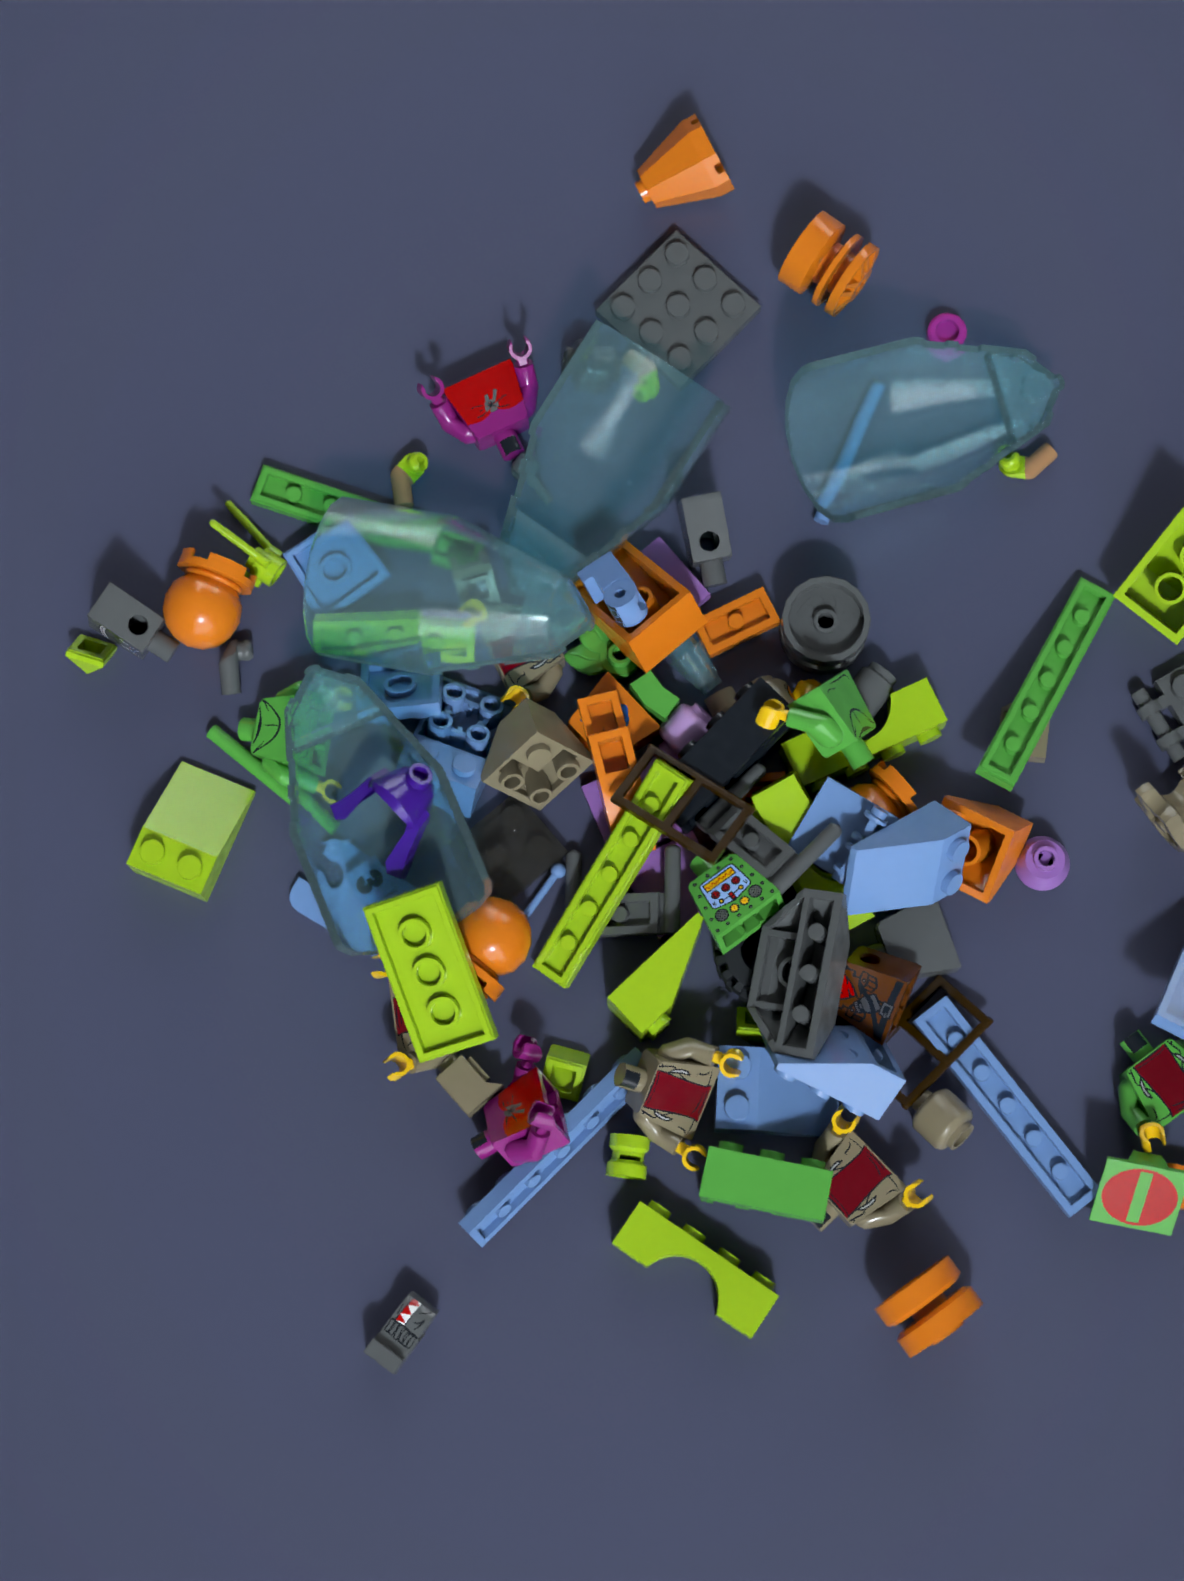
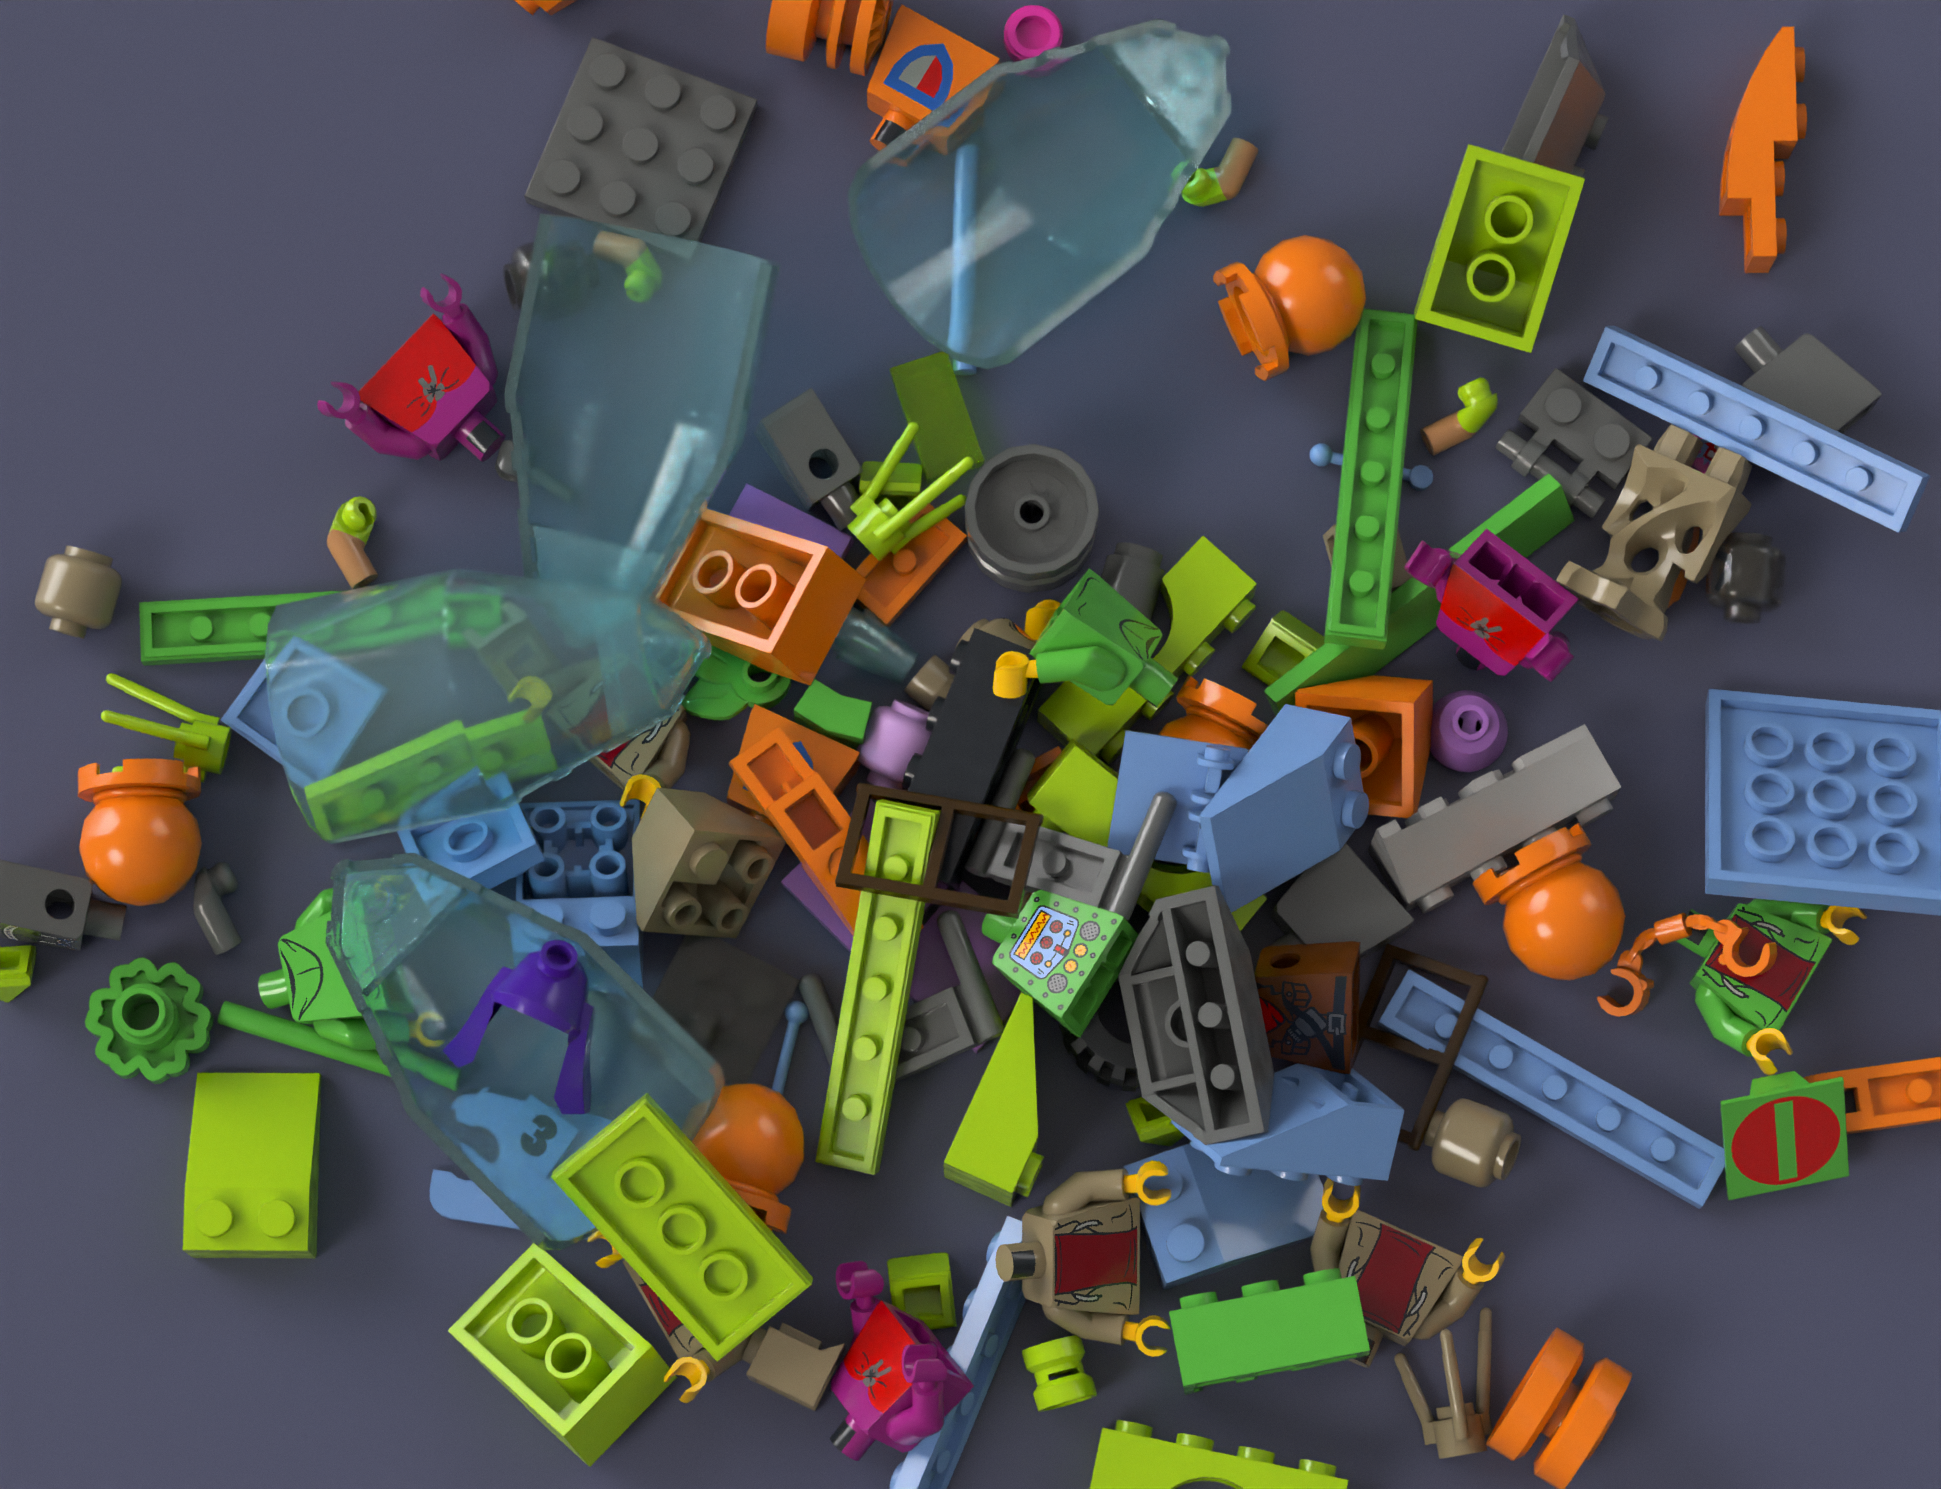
camera: 25 degrees left, 0 degrees up
(165, 718) = (149, 1020): none -> bright green plant
(229, 443) = (78, 591): none -> dark tan head
(330, 1020) = (562, 1353): none -> lime slope
(609, 581) = (707, 575): medium blue leg -> none
(733, 596) = (885, 528): none -> lime plant
(747, 571) = (901, 486): none -> lime slope
(792, 541) = (934, 401): none -> clear neon green tile
(862, 1290) = (1458, 1426): none -> dark tan plant
(867, 323) = (919, 72): none -> orange torso
(949, 771) = (1281, 647): none -> lime slope
(1037, 925) = (1494, 819): none -> light grey wedge
(1045, 556) = (1297, 301): none -> orange tile
(1054, 997) = (1558, 911): none -> orange tile
(1061, 768) = (1414, 608): none -> bright green tile
(1076, 695) = (1419, 477): none -> medium blue hinge
(1091, 792) = (1496, 606): none -> magenta torso
(1117, 673) = (1463, 423): none -> arm
(1120, 1037) = (1674, 929): none -> orange piece

